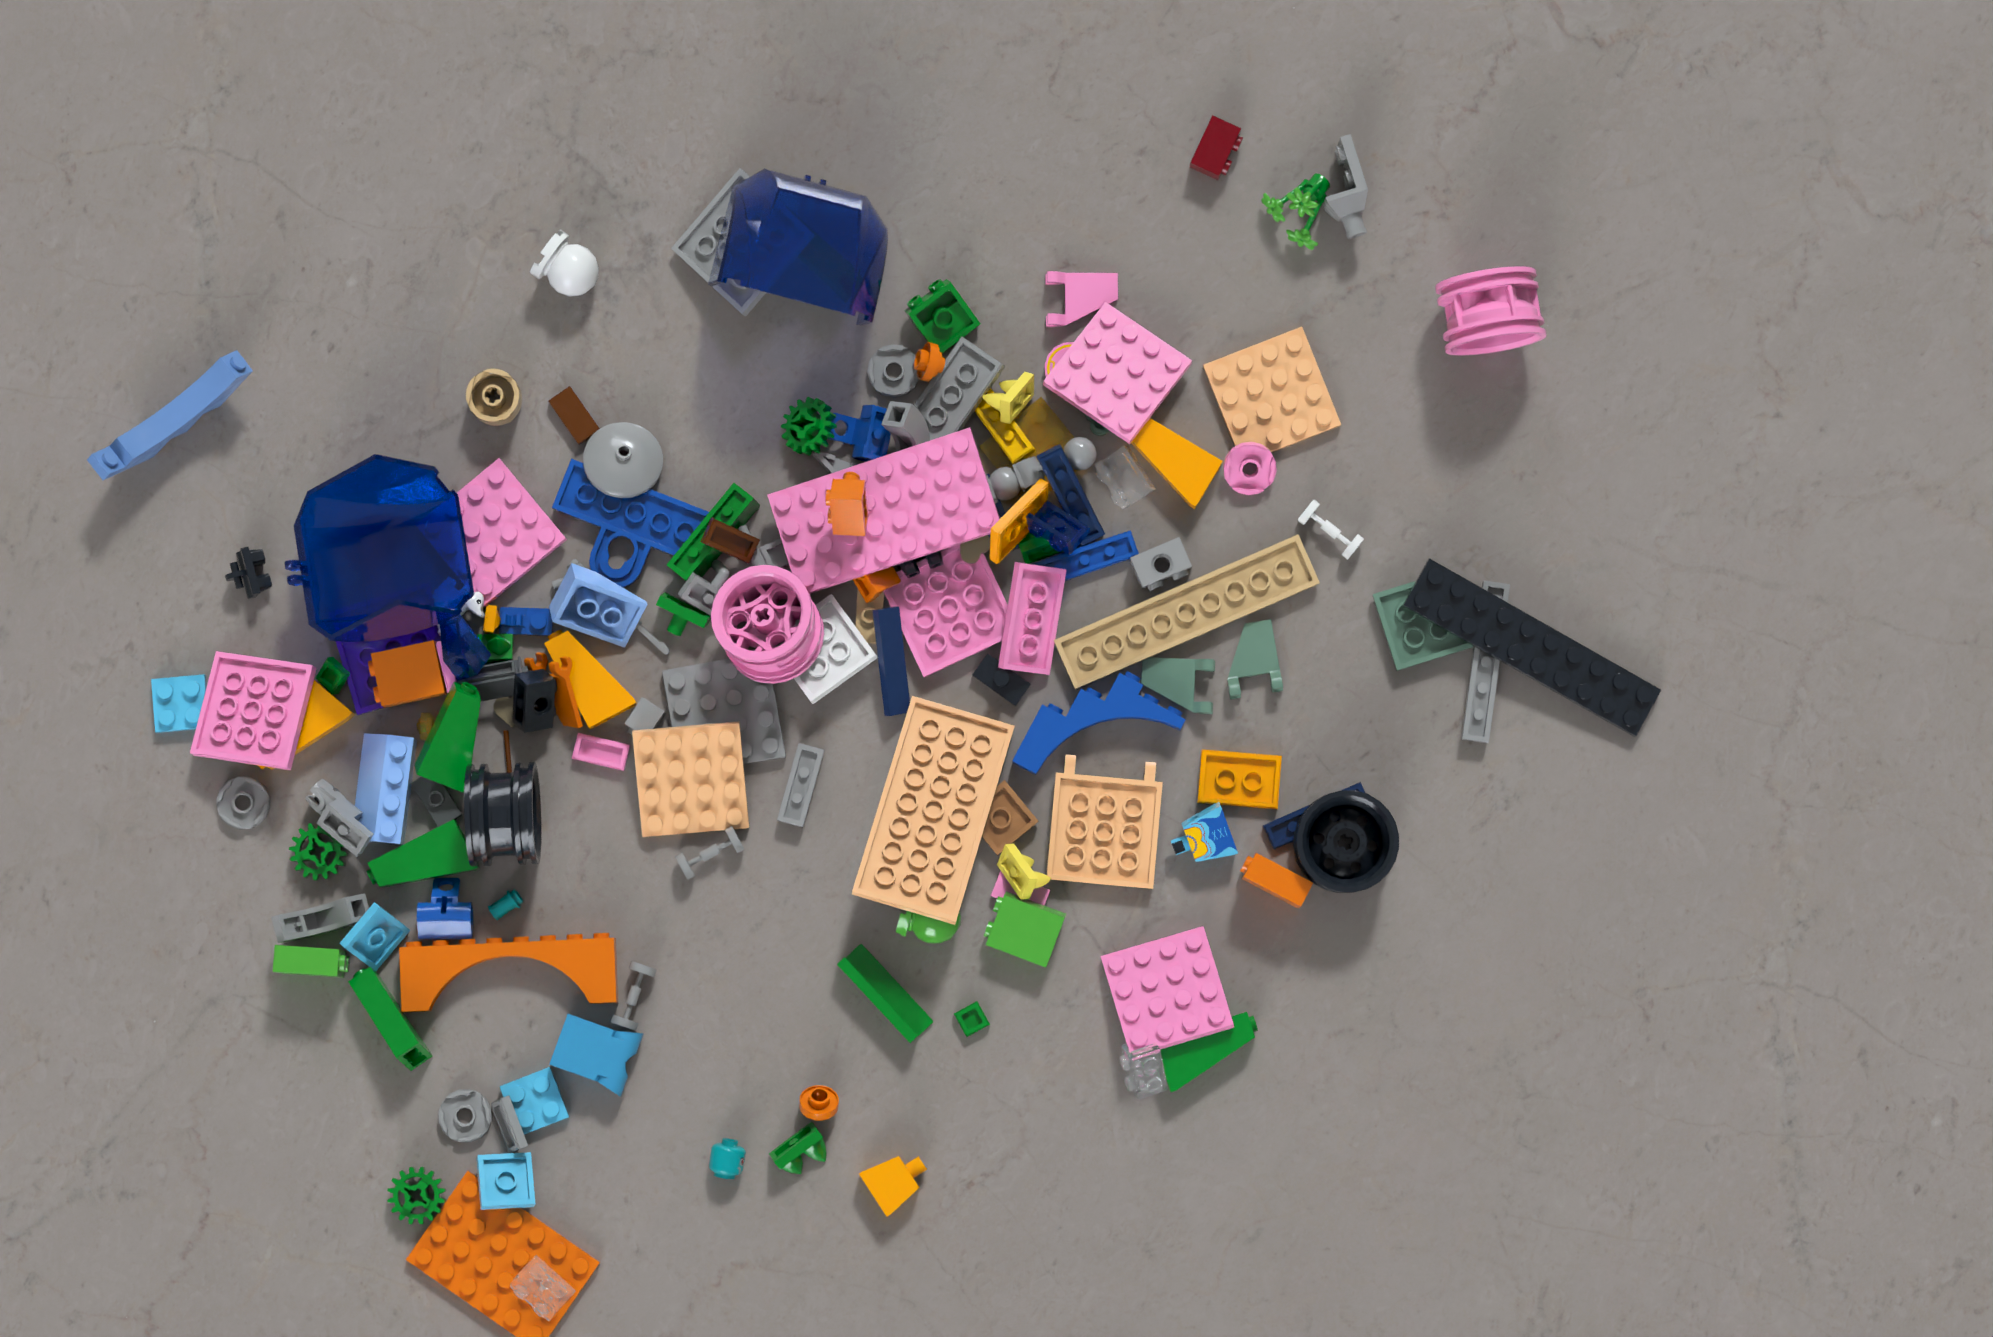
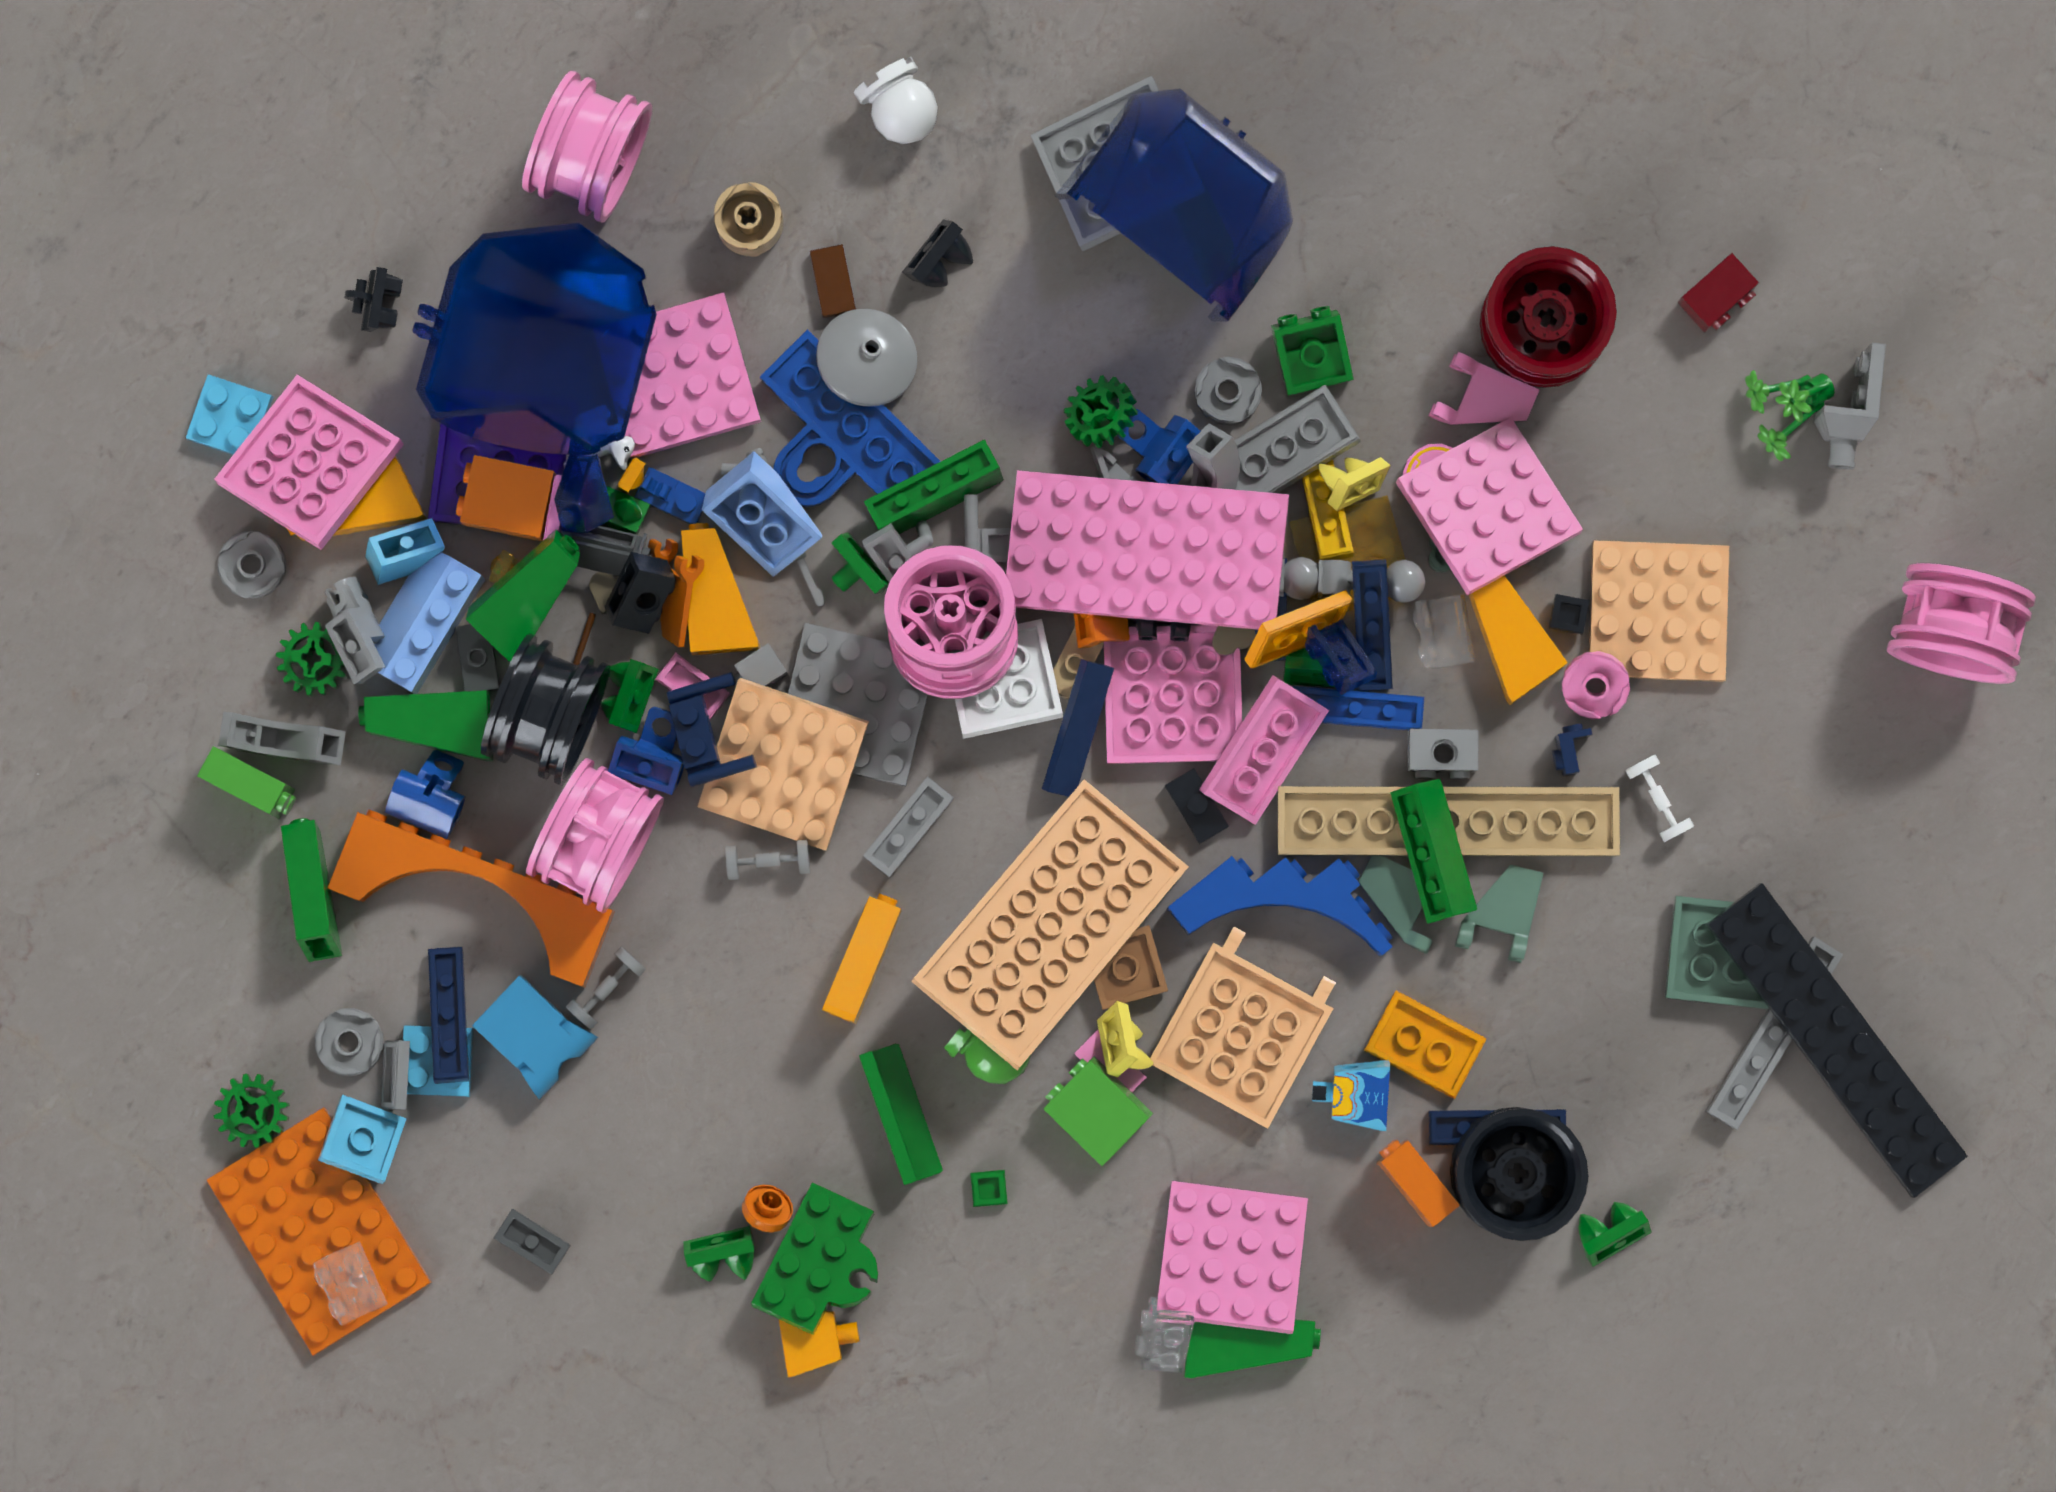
camera: 20 degrees right, 0 degrees up
(173, 419) = (365, 83): medium blue arch -> none
(332, 675) = (419, 461): green tile -> none
(349, 744) = (403, 550): none -> medium azure slope
(354, 395) = (586, 146): none -> bright pink wheel
(375, 936) = (335, 787): medium azure plate -> none
(505, 904) = (504, 815): teal pin -> none
(528, 1064) = (448, 1015): none -> dark blue tile
(561, 785) = (635, 686): none -> green tile
(578, 888) = (595, 834): none -> bright pink wheel
(593, 816) = (650, 758): none -> blue piece
(619, 785) = (696, 734): none -> dark blue plate
(642, 353) = (944, 242): none -> black tile
(660, 1200) = (532, 1241): none -> dark grey plate
(727, 1159) = (631, 1227): teal head -> none
(730, 540) = (950, 505): reddish brown tile -> none
(809, 894) = (862, 958): none -> light orange slope
(847, 505) = (1105, 523): orange brick -> none
(872, 1124) = (818, 1260): none -> green plate
(928, 362) = (1273, 397): orange plate -> none
(1085, 185) = (1589, 295): none -> dark red wheel
(1185, 637) = (1433, 850): none -> green panel
(1208, 425) = (1568, 614): none -> black plate
(1249, 528) = (1565, 754): none -> dark blue bracket
(1440, 848) = (1601, 1243): none -> green tile

